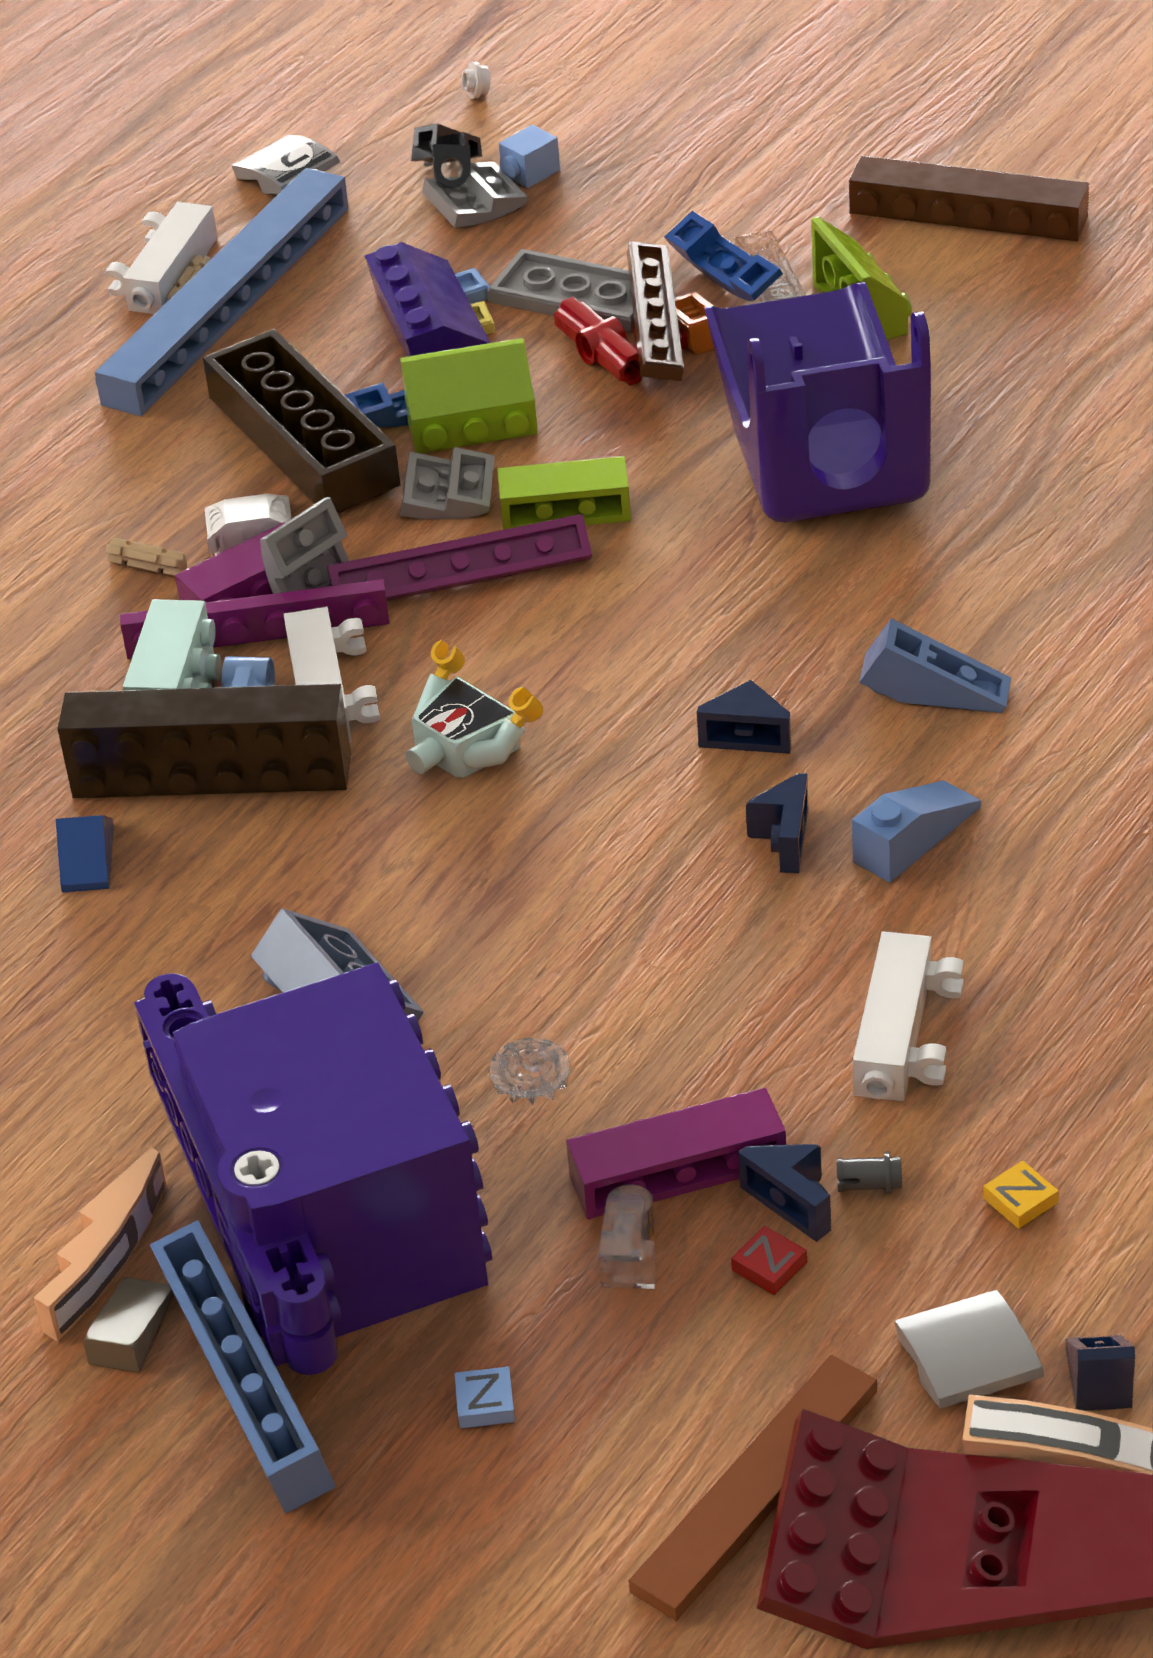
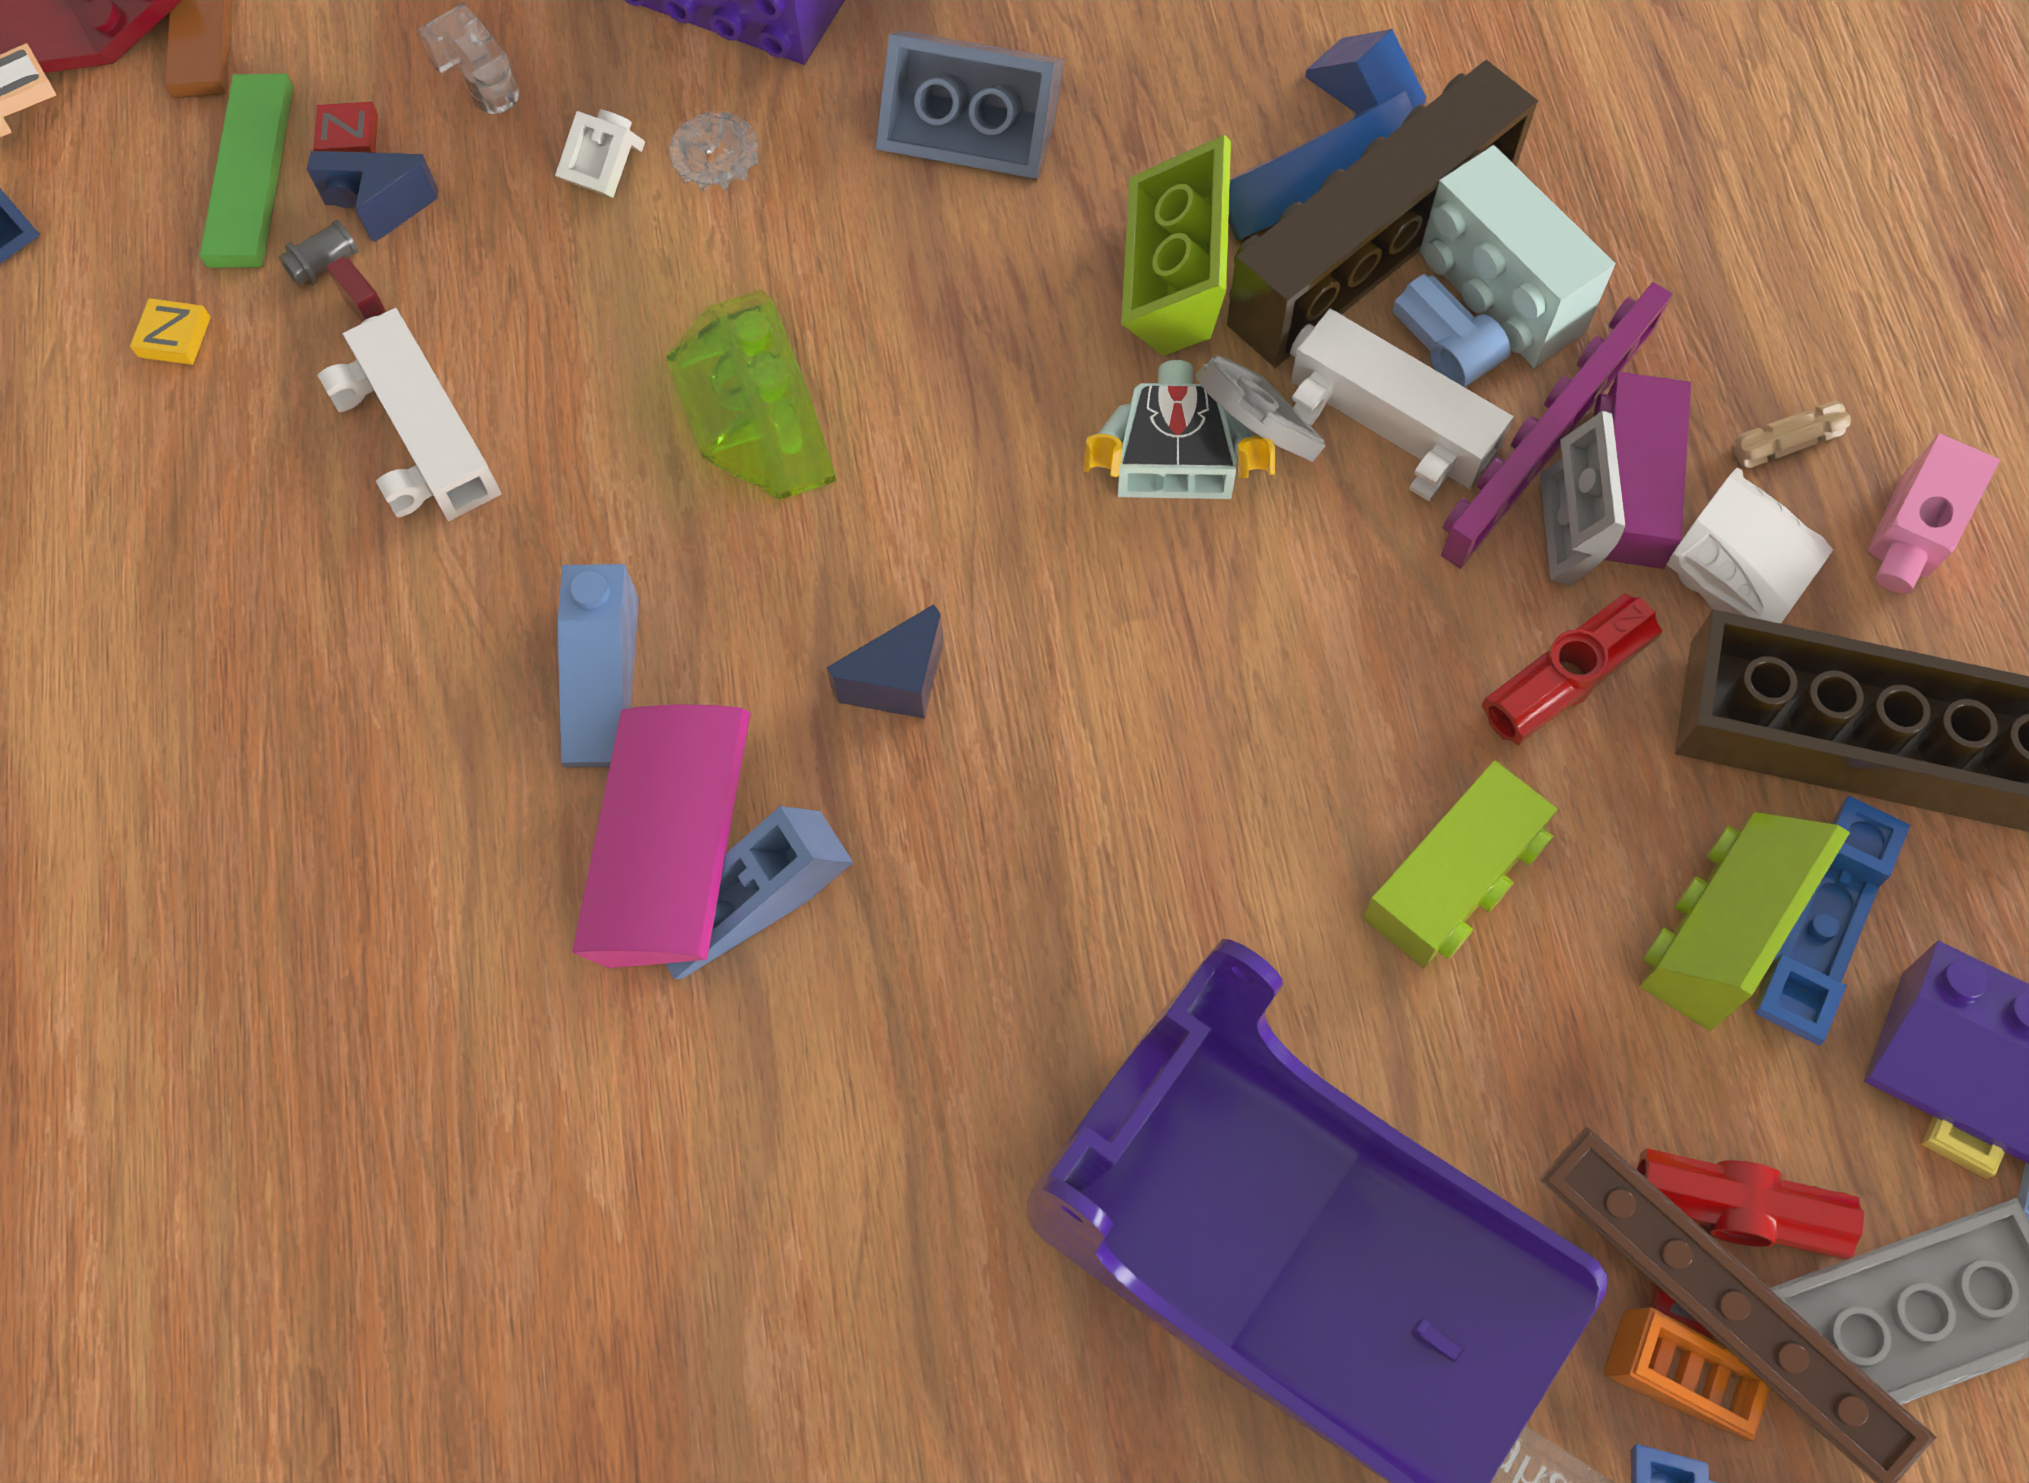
camera: 135 degrees right, 25 degrees up
(152, 473) = (1929, 511): none -> bright pink torso
(236, 810) = (1269, 188): none -> blue slope
(334, 783) = (1177, 248): none -> lime slope
(402, 525) = (1548, 689): none -> red piece
(405, 696) = (1259, 406): none -> light grey tile
(447, 487) = (1623, 793): light grey slope -> none
(471, 558) = (1445, 669): magenta plate -> none
(606, 1105) = (597, 151): none -> white bracket
(664, 913) = (750, 397): none -> clear neon green wedge
(672, 1150) = (497, 152): magenta brick -> none
(782, 817) = (733, 570): dark blue slope -> none
(865, 1280) = (247, 171): none -> bright green tile
(867, 1114) = (355, 289): none -> dark red tile
(954, 710) = (662, 835): none -> dark pink slope
(969, 1348) = (108, 160): light grey slope -> none

